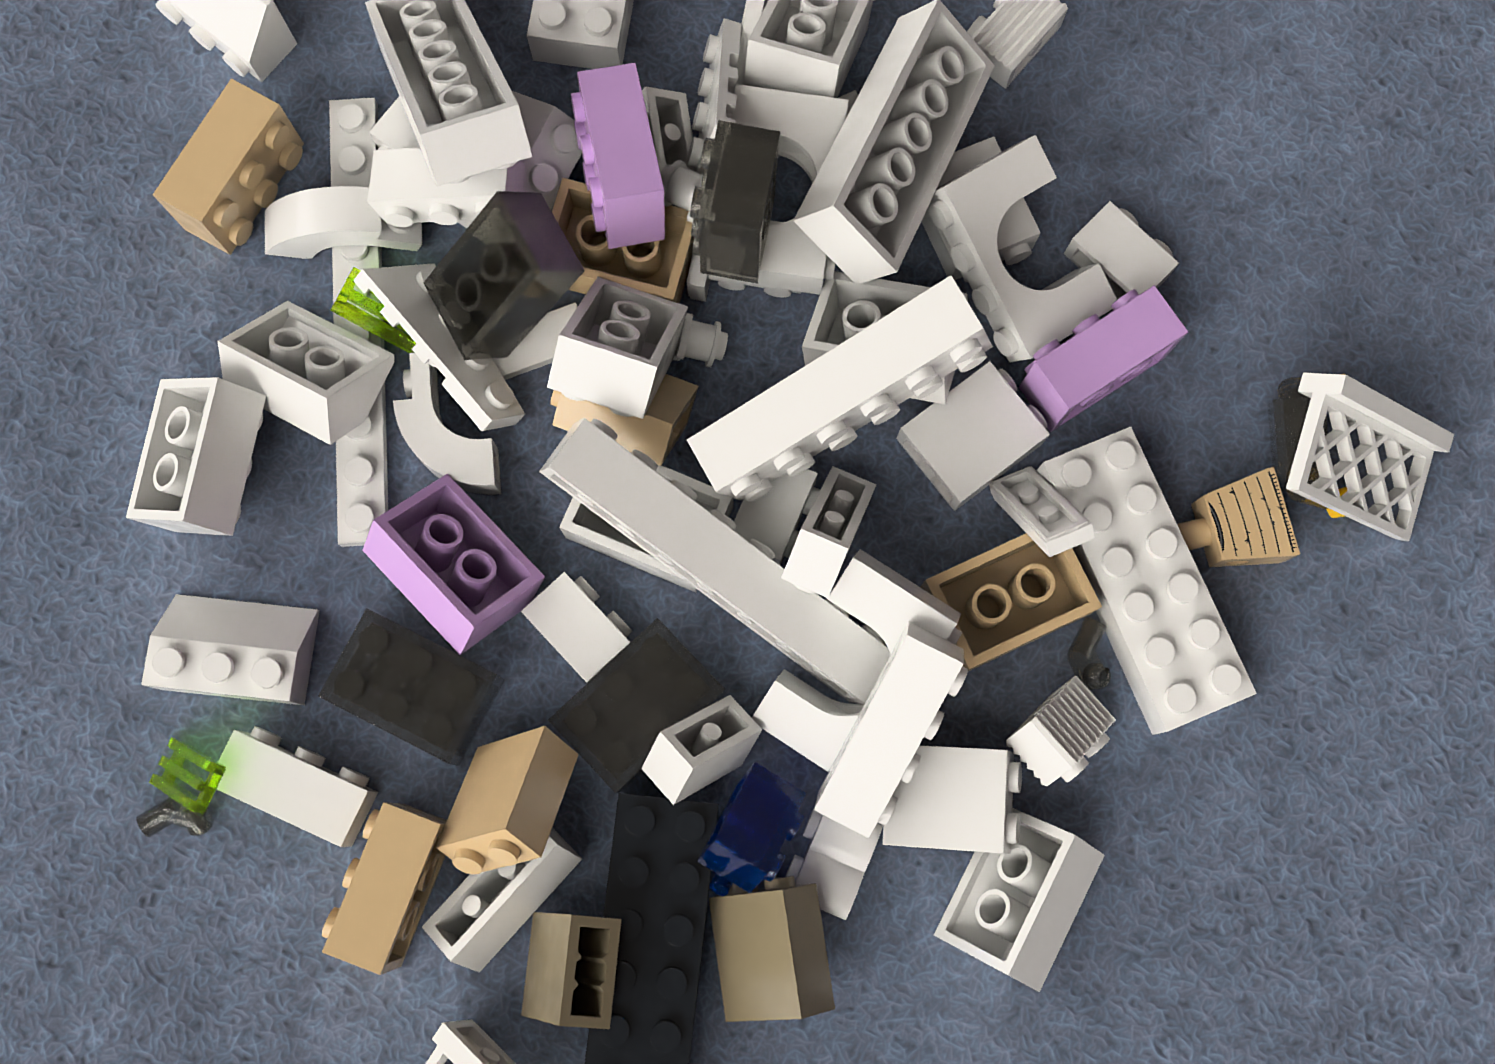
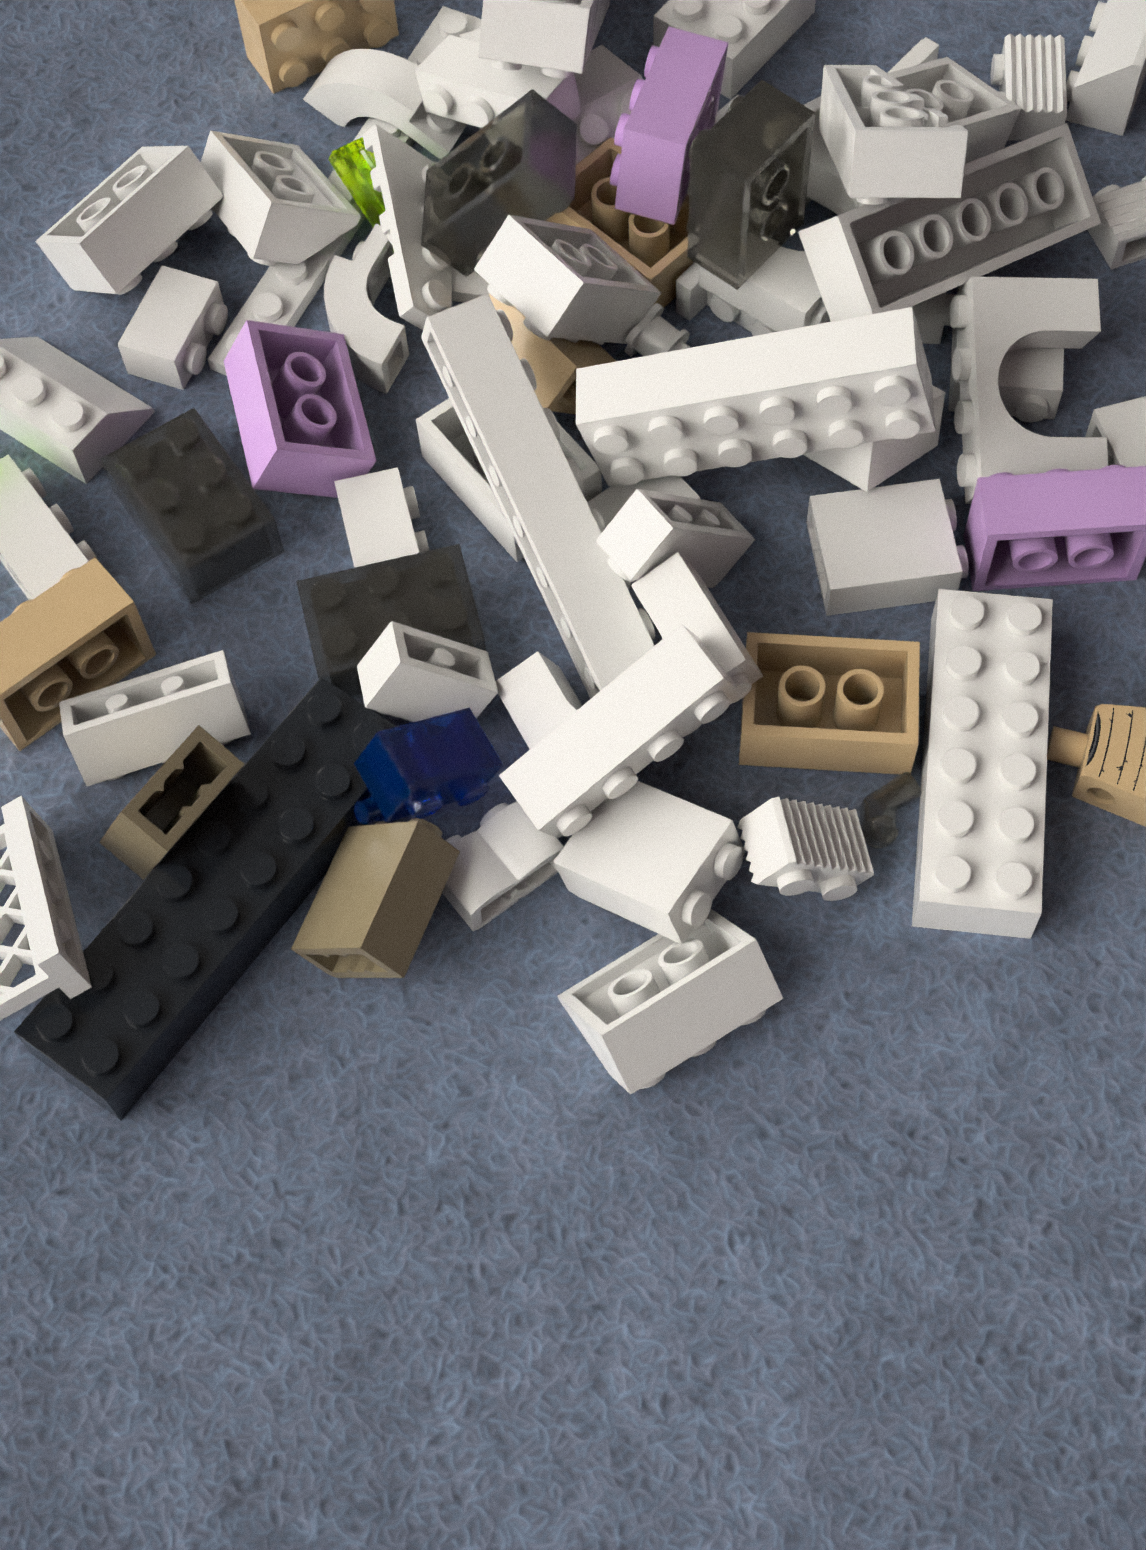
camera: 35 degrees right, 15 degrees down
(293, 531) = (173, 328): none -> white brick
(508, 801) = (210, 624): tan brick -> none
(822, 107) = (886, 140): none -> white wedge
(1041, 511) = (907, 628): white tile -> none

